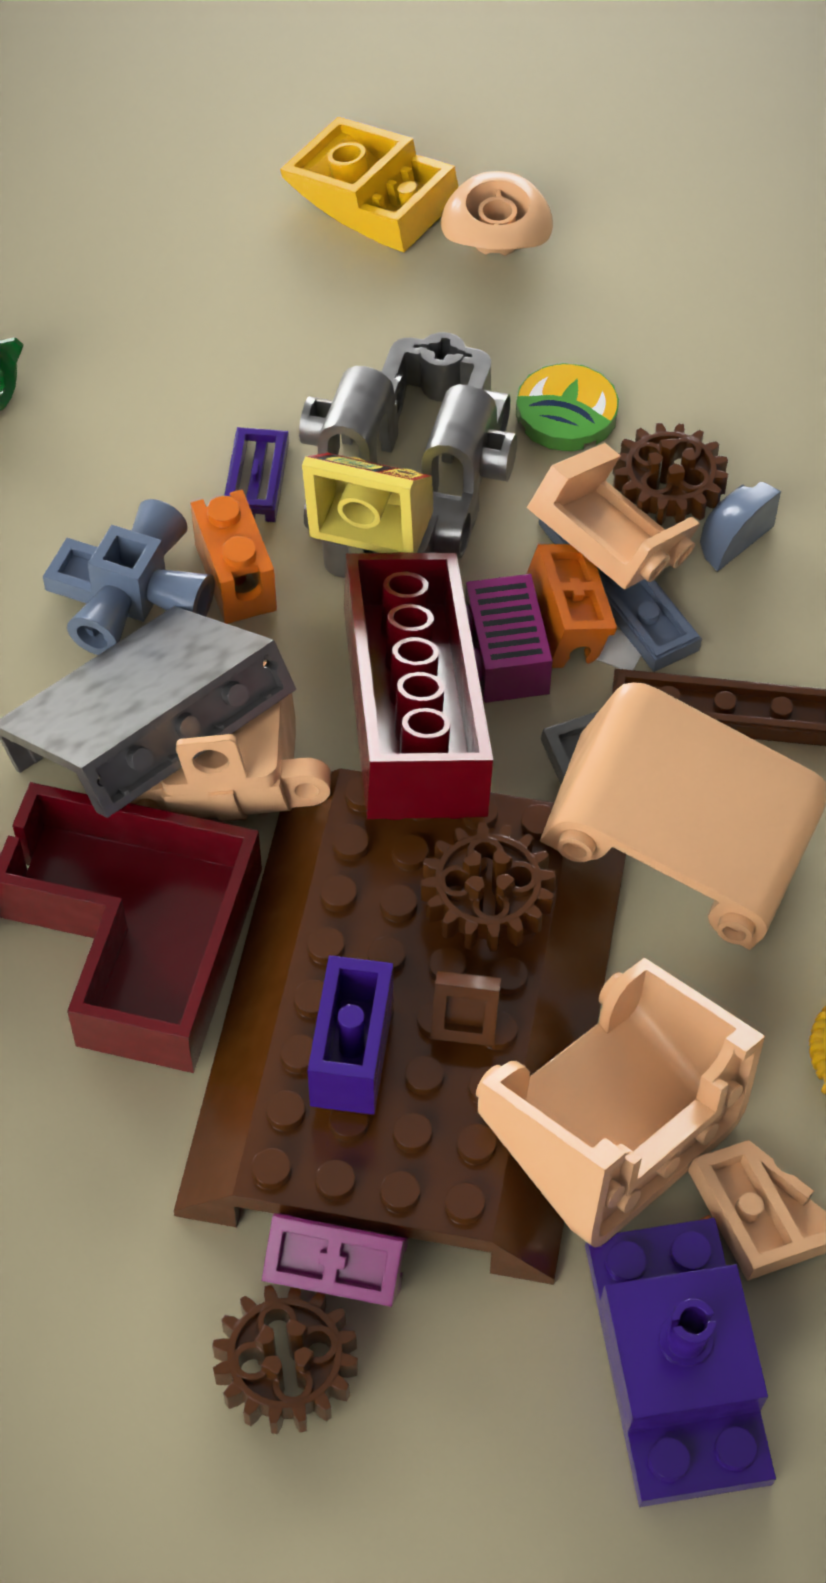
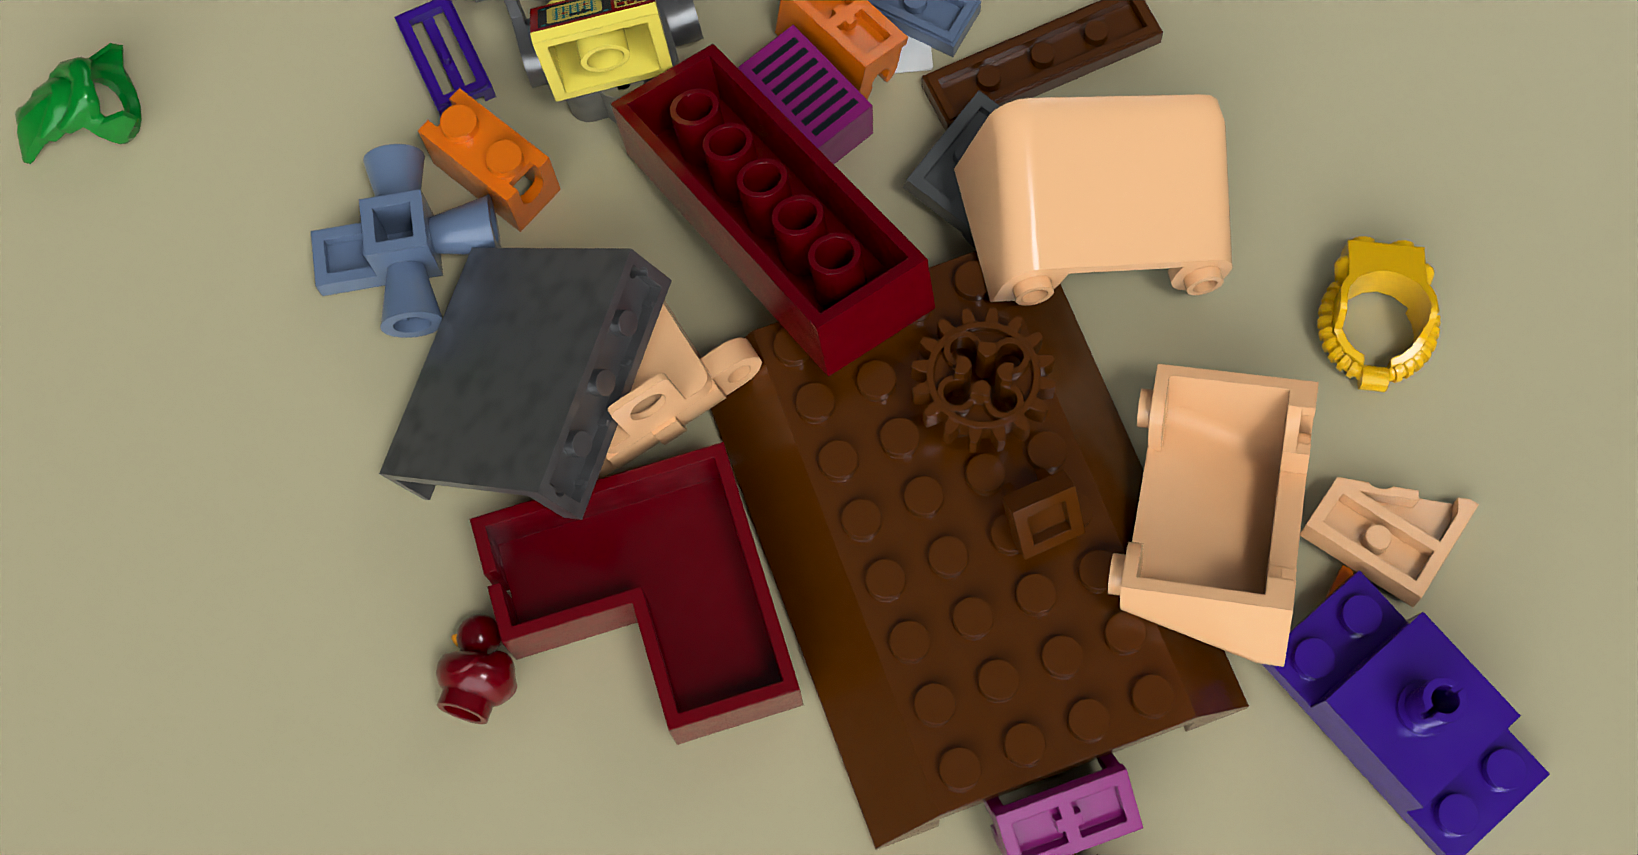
camera: 25 degrees left, 15 degrees up
(351, 1035) = (965, 605): dark purple brick -> none

